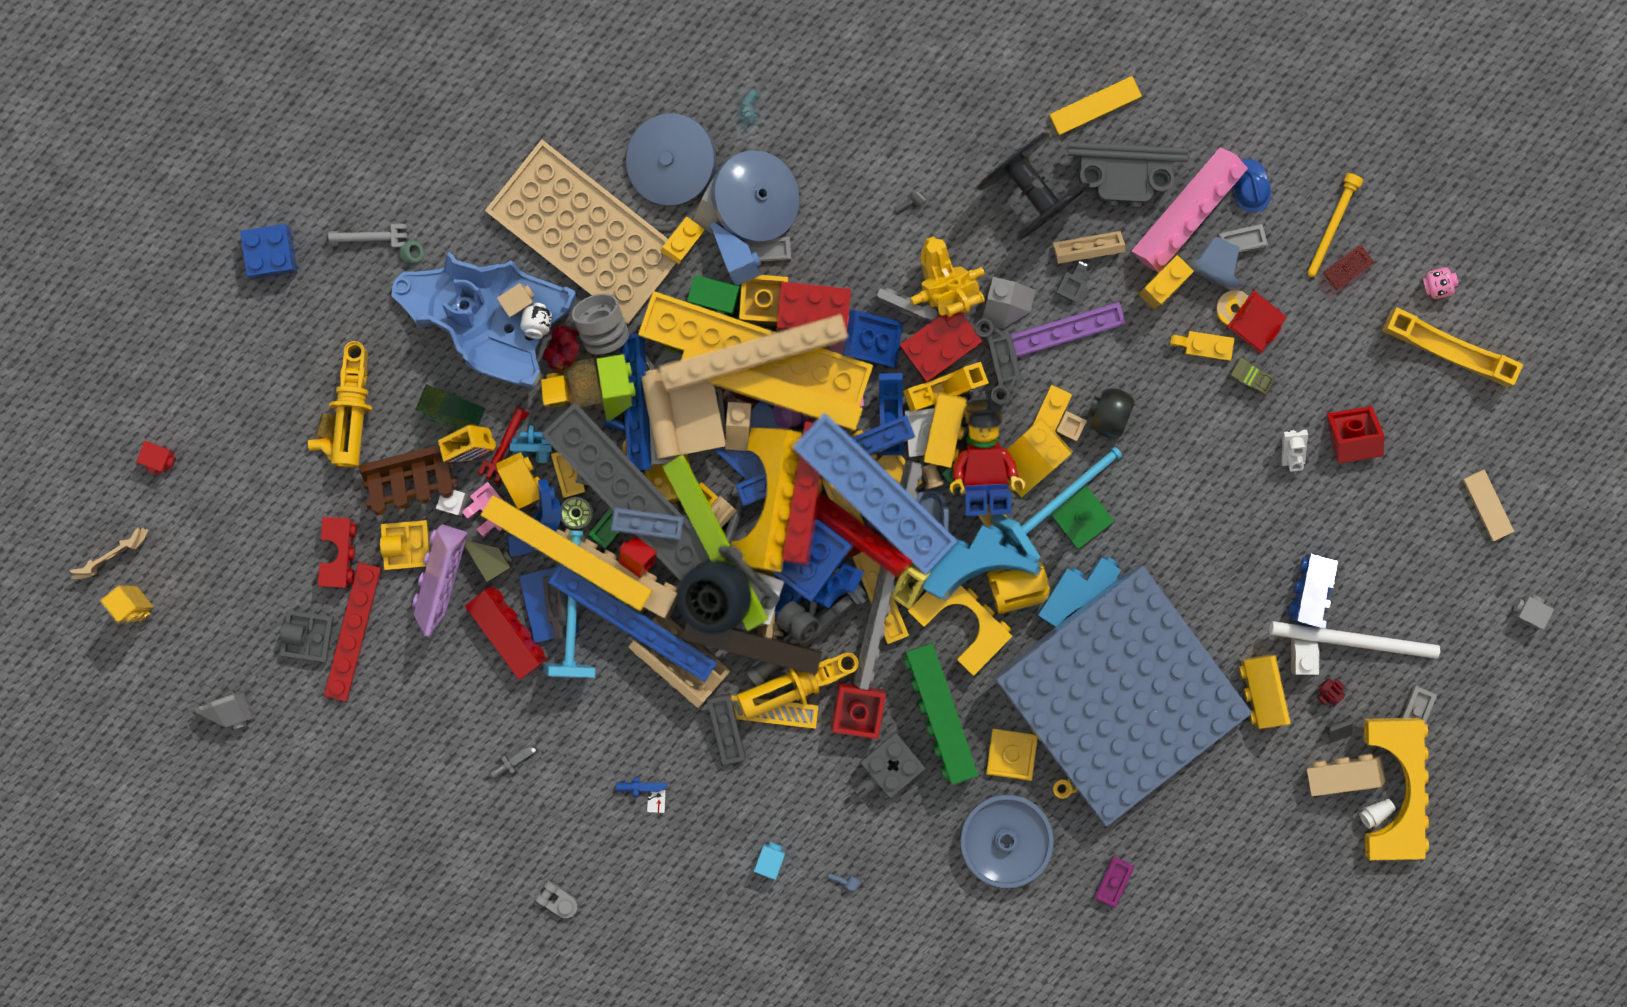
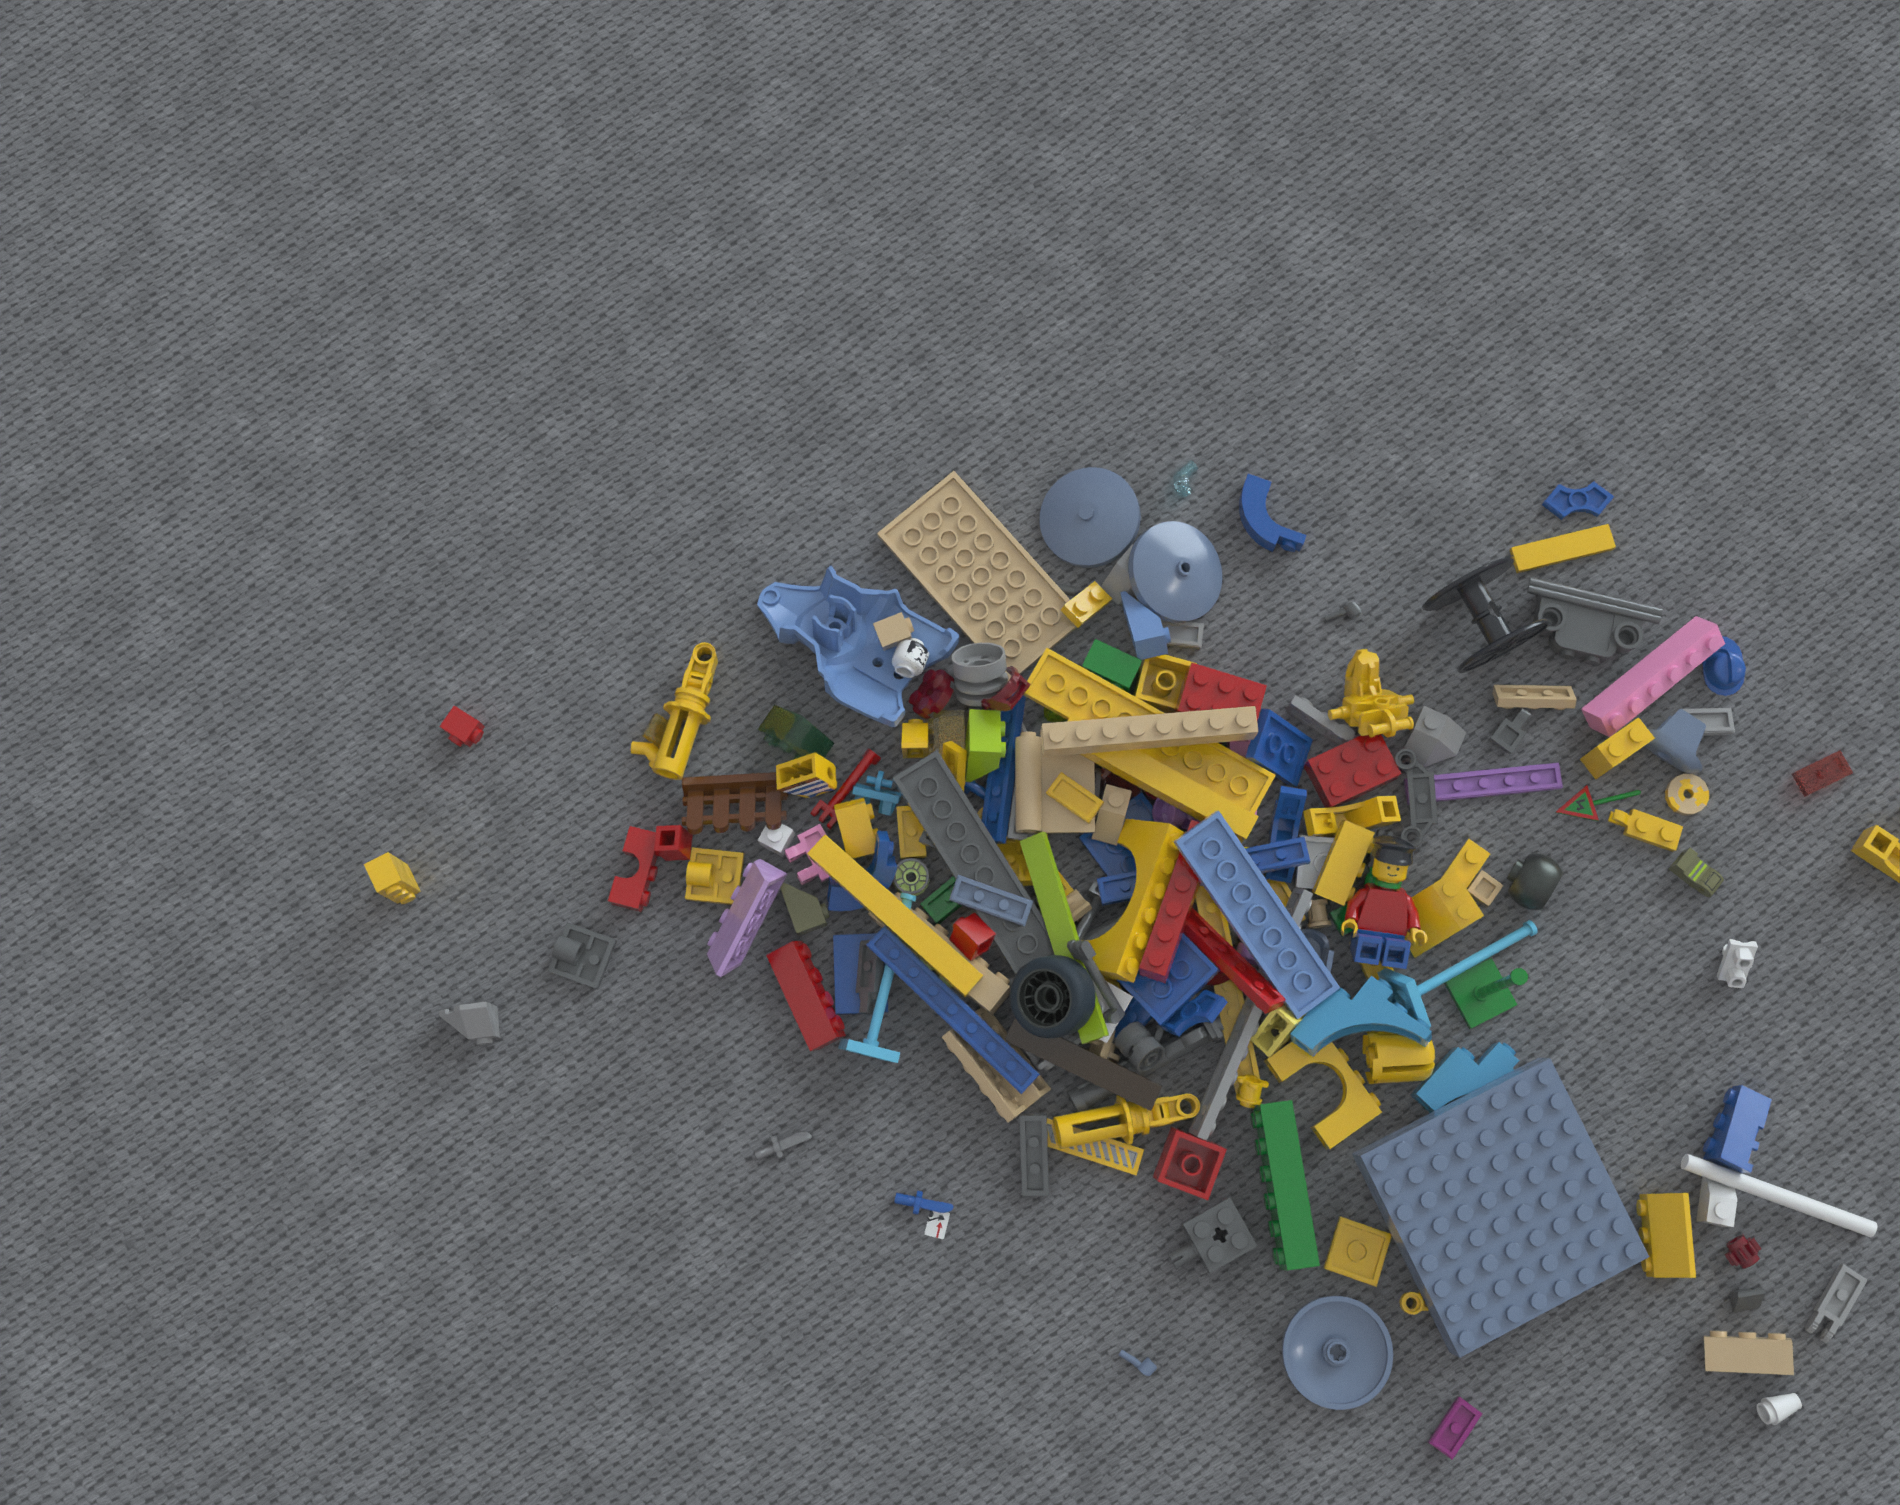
camera: 10 degrees right, 10 degrees down
(91, 567) = (363, 832): tan piece -> none
(268, 251) = (635, 532): blue brick -> none
(352, 631) = (634, 962): red plate -> none
(363, 524) = (673, 842): none -> red brick
(393, 236) = (771, 542): light grey hinge -> none
(405, 255) = (781, 563): sand green piece -> none
(564, 906) = (808, 1325): light grey plate -> none
(593, 406) = (955, 759): none -> yellow plate
(632, 330) = (1016, 685): none -> dark red helmet
(702, 420) = (1074, 797): none -> yellow tile
(770, 860) = (1056, 1319): medium azure brick -> none
(819, 133) = (1258, 522): none -> blue arch
(898, 640) = (1250, 1090): none -> yellow brick
(1112, 56) = (1567, 501): none -> blue tile
(1146, 336) = (1583, 806): none -> piece
(1257, 322) = (1711, 814): red piece -> none
(1352, 183) = (1836, 684): yellow piece -> none
(1355, 434) = (1809, 960): red slope -> none
(1406, 832) = (1813, 1436): yellow arch -> none

